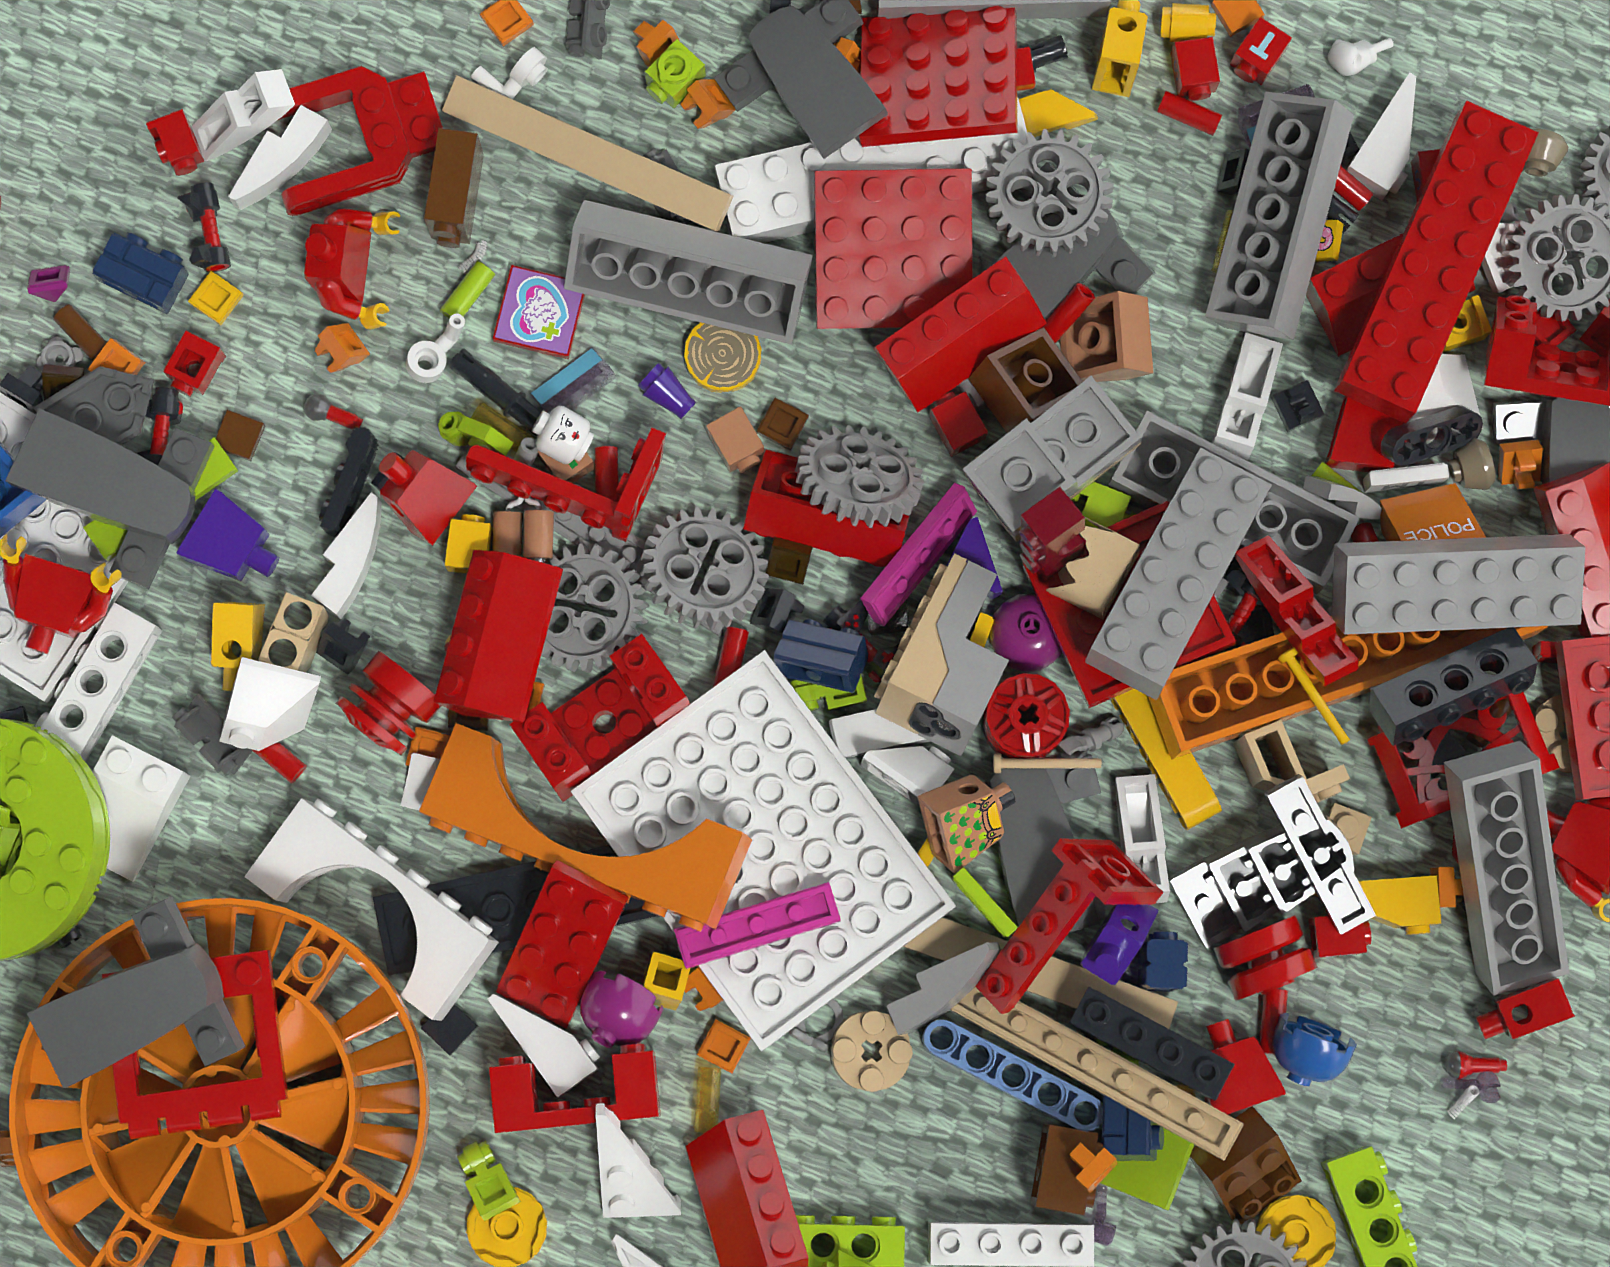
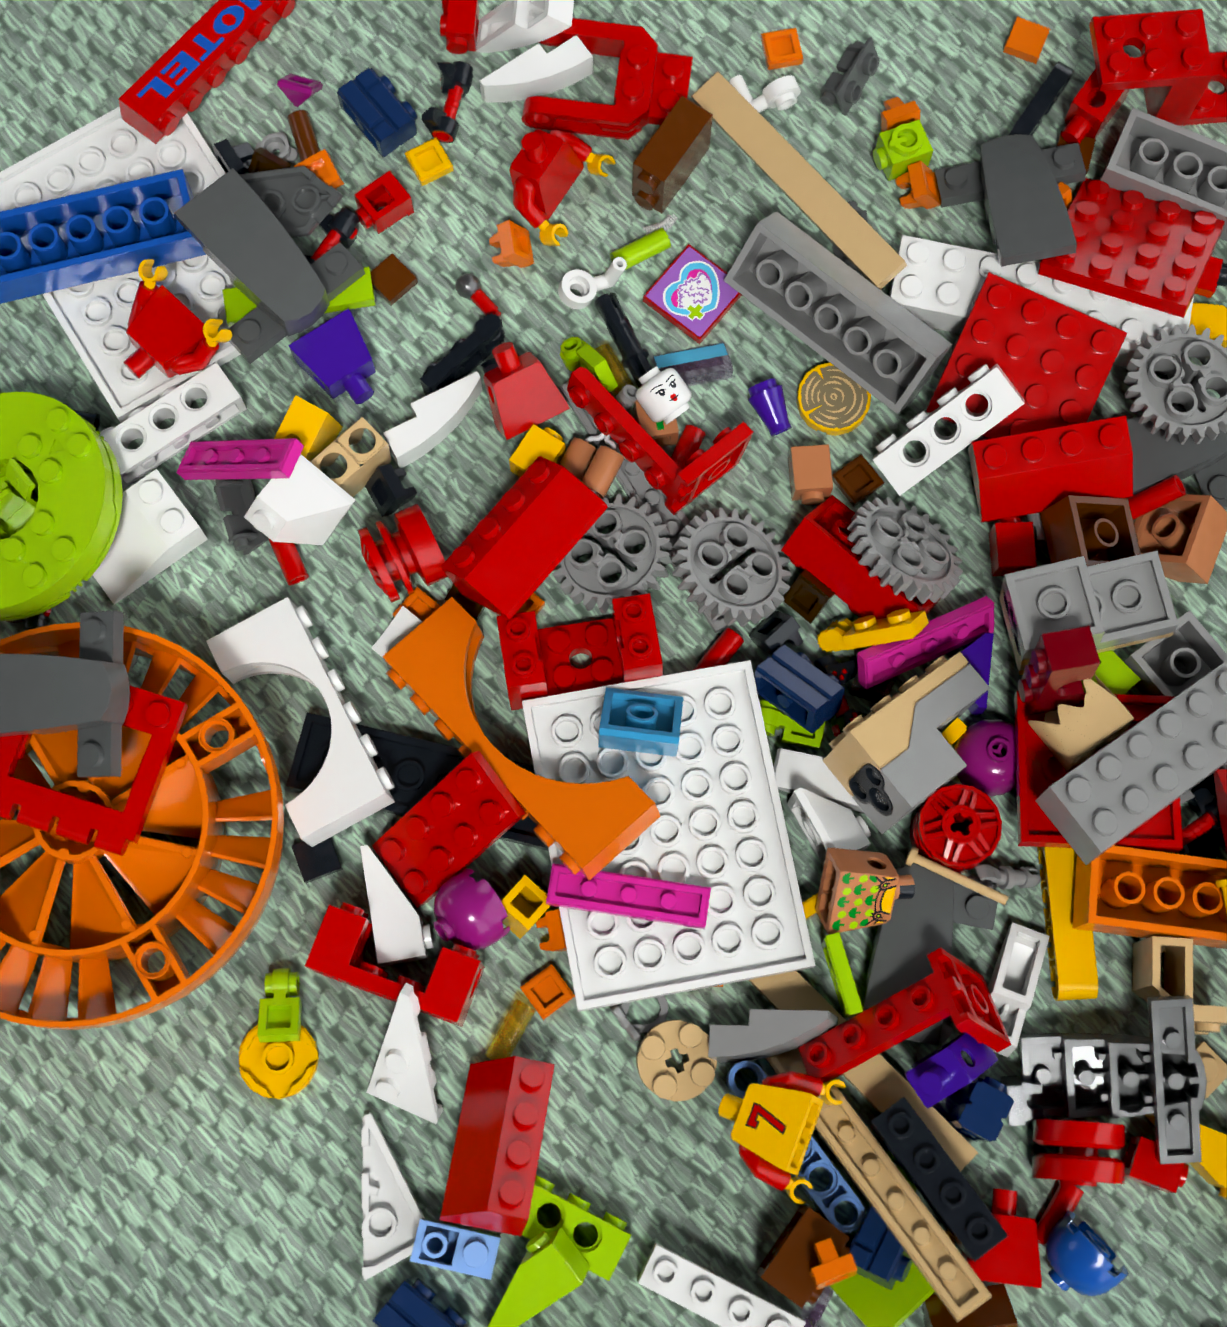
camera: 30 degrees right, 5 degrees down
(189, 688) = (240, 459): none -> dark pink tile
(691, 758) = (640, 722): none -> dark azure slope
(825, 397) = (905, 471): none -> white brick
(864, 569) = (869, 632): none -> yellow hinge
(988, 1066) = (777, 1125): none -> yellow torso
(1189, 931) = (1019, 1090): none -> tile

